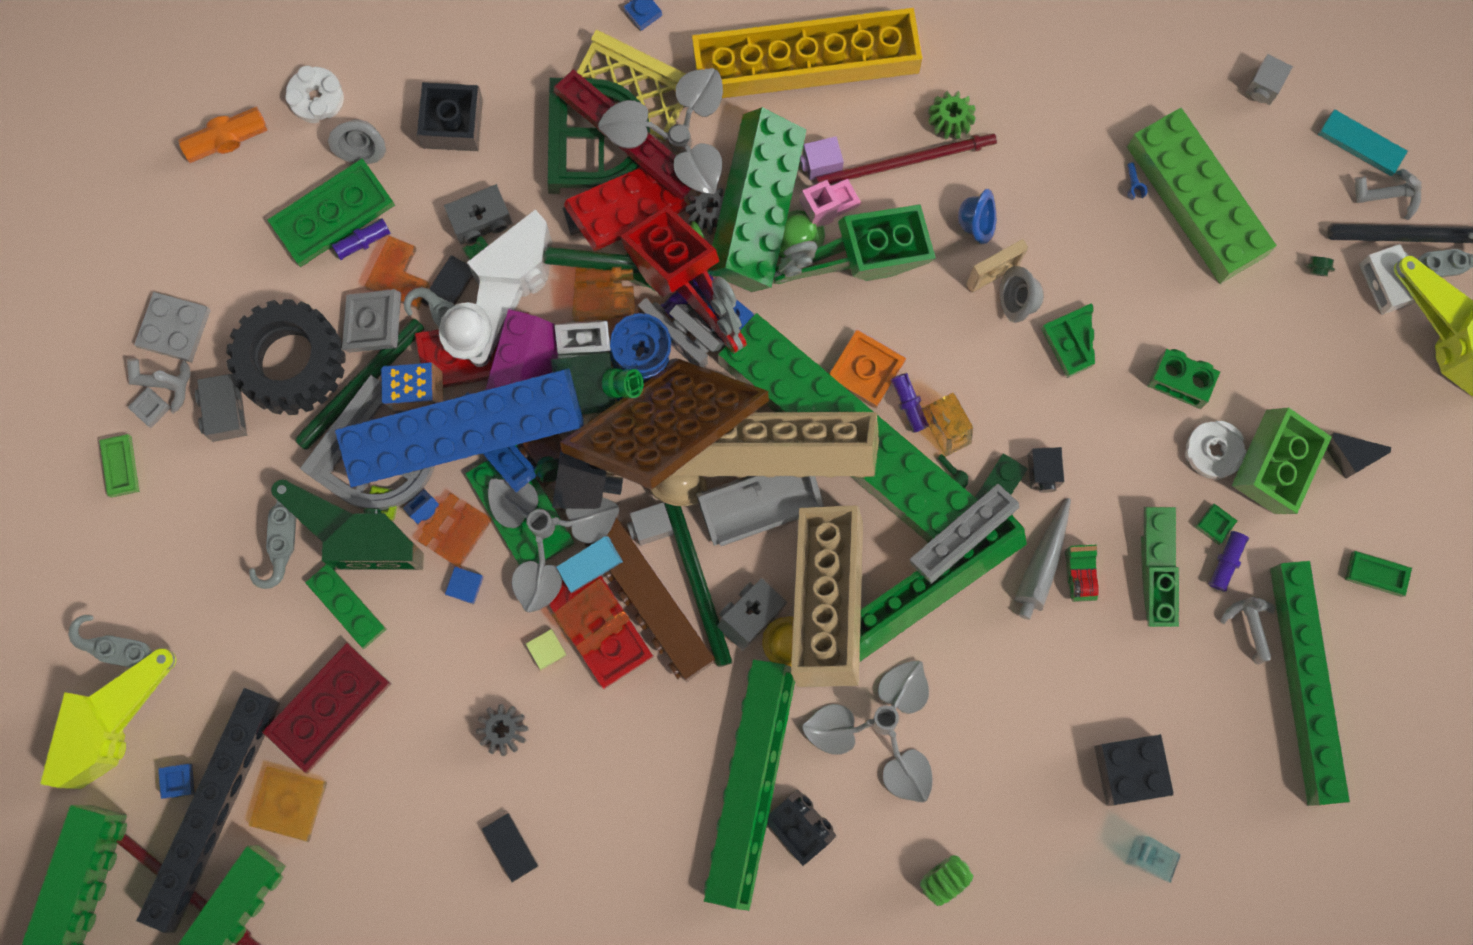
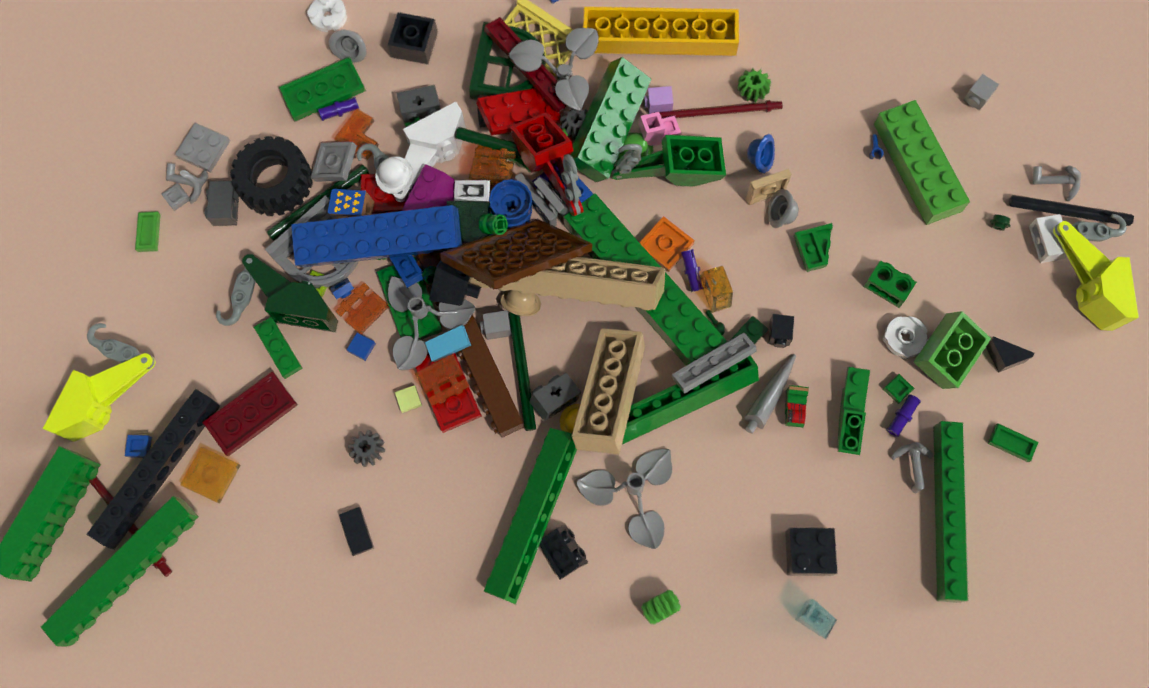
camera: 15 degrees right, 5 degrees down
(223, 134) = (262, 30): orange piece -> none
(451, 281) = (393, 144): black tile -> none
(755, 505) = (572, 321): light grey container -> none
(1363, 142) = (1043, 144): teal tile -> none

